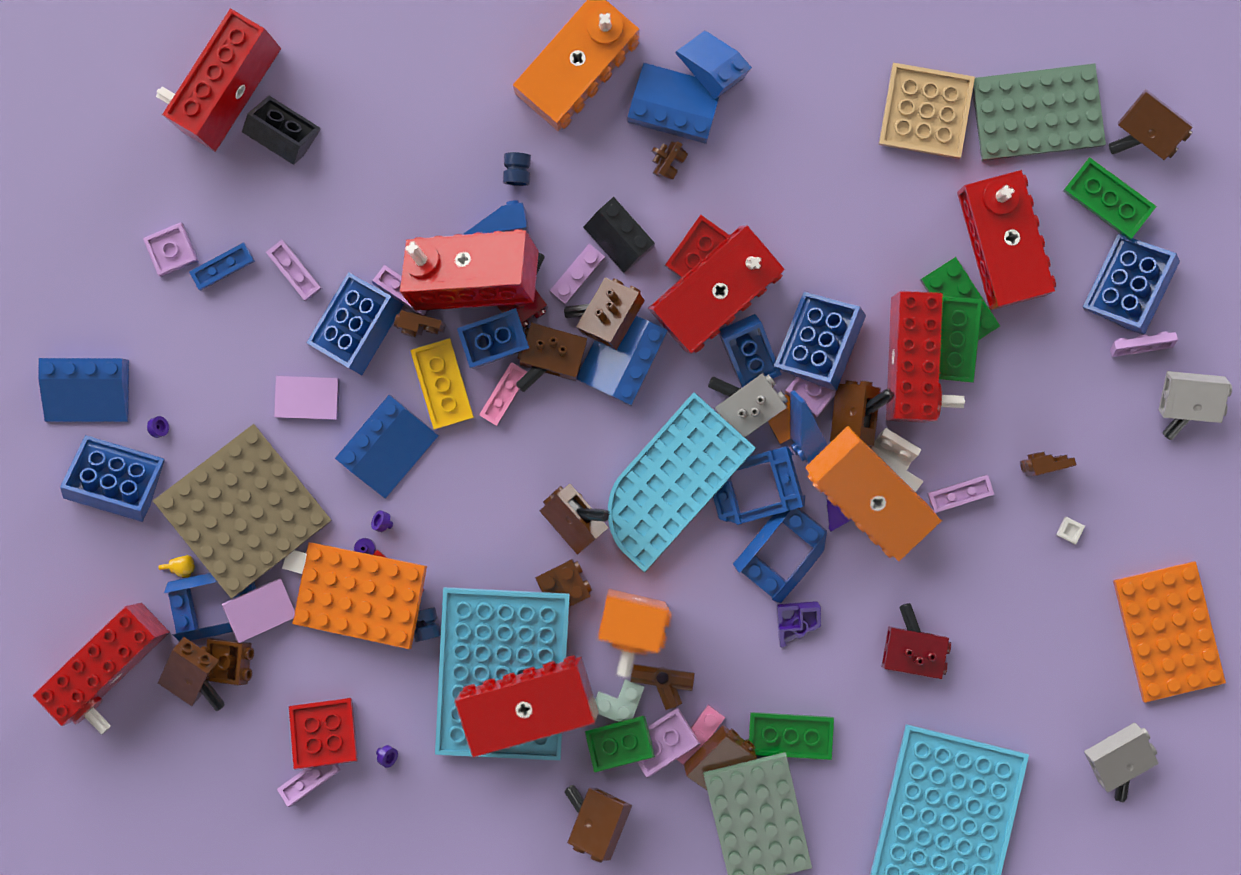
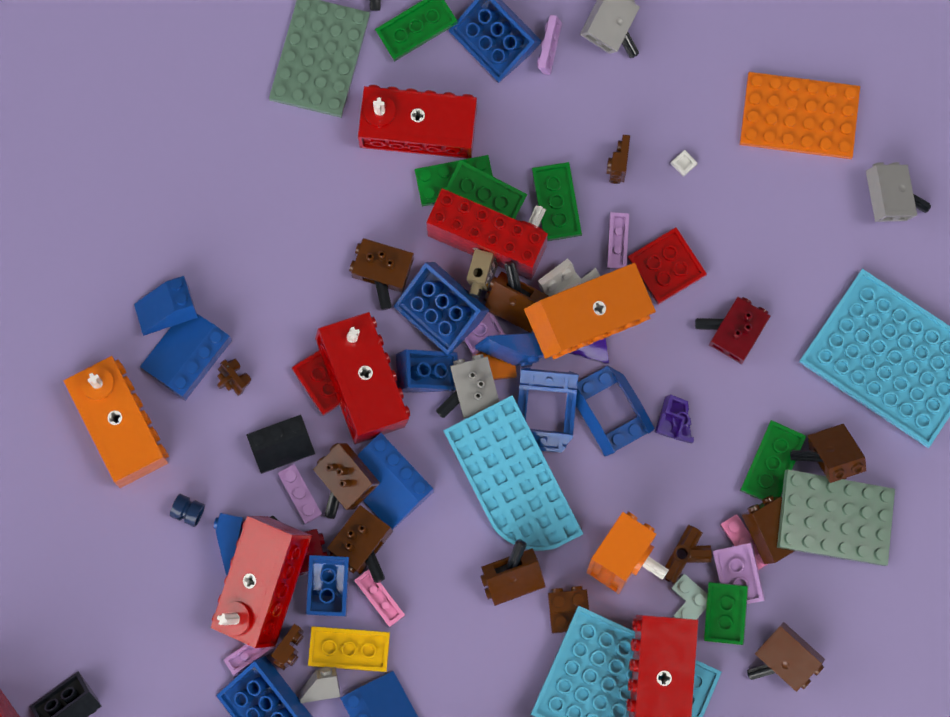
camera: 70 degrees left, 10 degrees down
(395, 371) = (321, 686): none -> light grey slope
(823, 795) = (834, 452): none -> reddish brown piece
(840, 264) = (382, 266): none -> reddish brown piece
(879, 367) = (481, 272): none -> dark tan torso
(926, 110) = (280, 146): tan plate -> none
(954, 553) = (667, 265): none -> red plate
(980, 416) = (557, 195): none -> green plate

